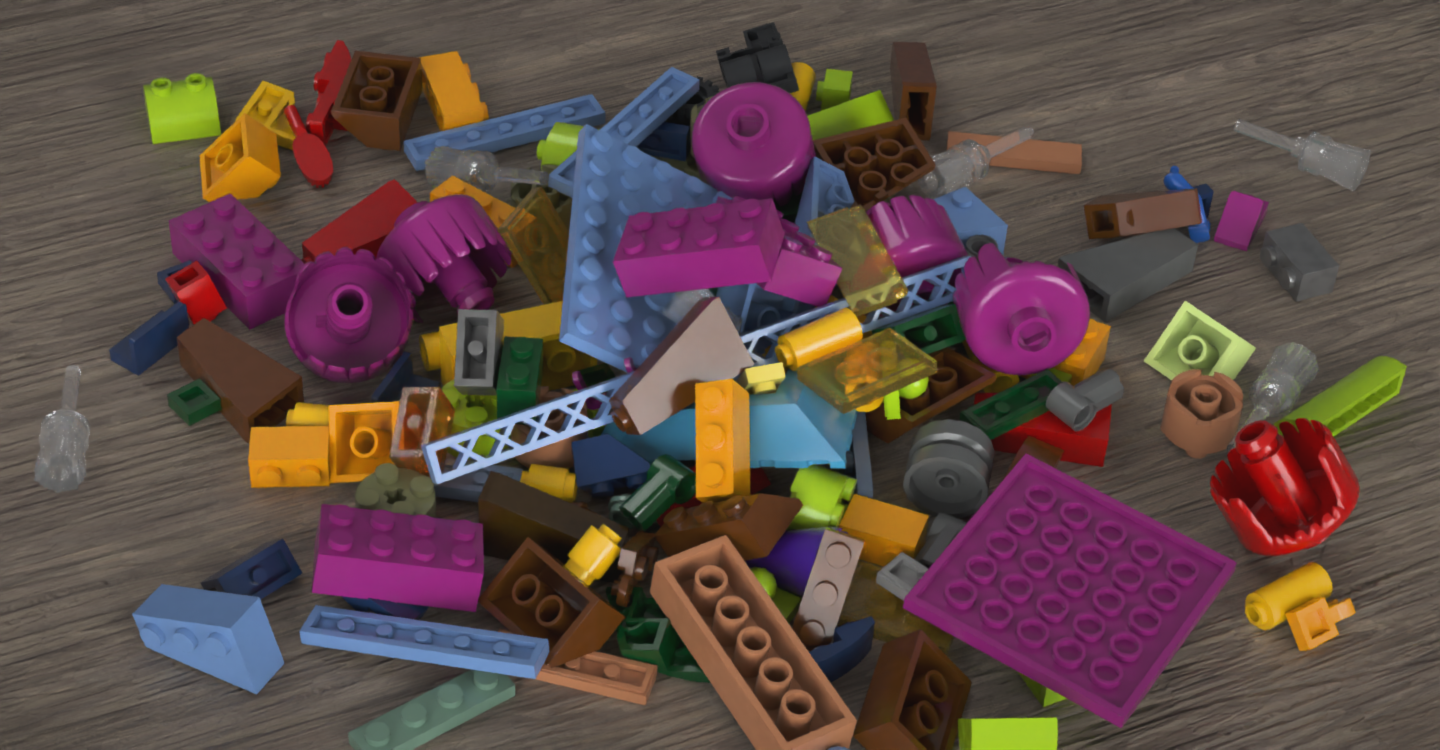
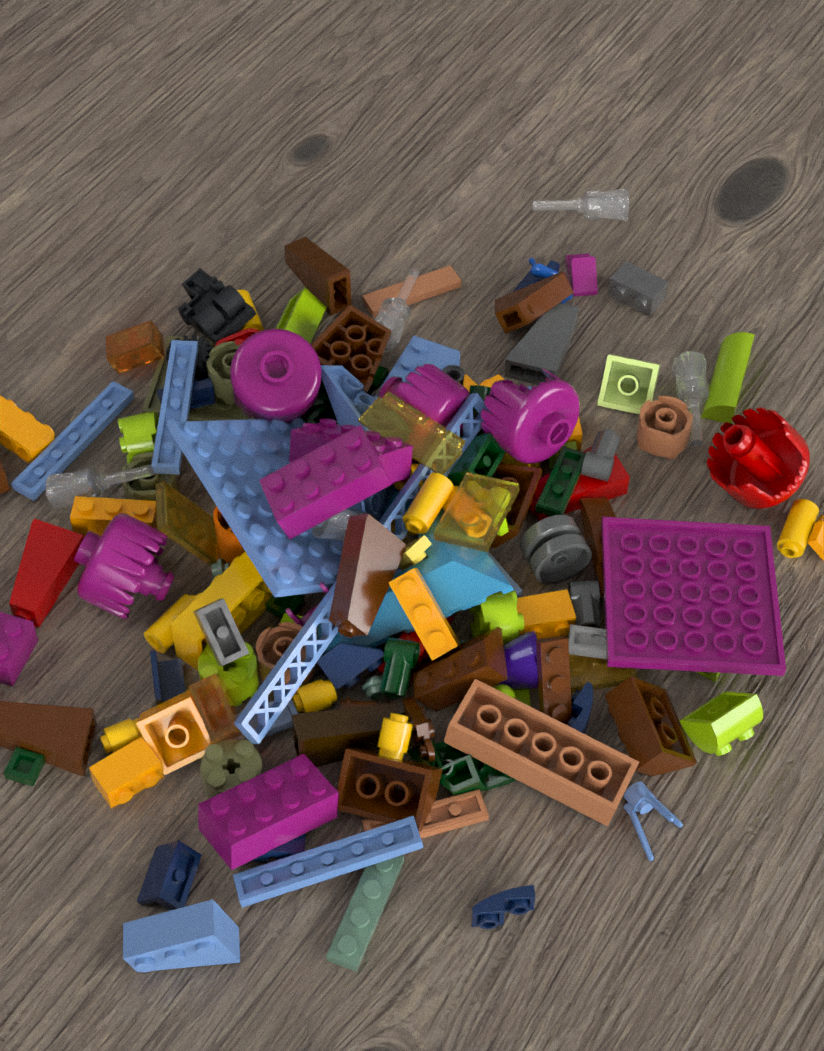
camera: 30 degrees left, 10 degrees up
(348, 316) = (96, 647): magenta piece -> none
(519, 375) = (258, 635): dark green brick -> none
(635, 68) = (134, 347): none -> clear orange brick
(835, 88) = (271, 300): lime plate -> none

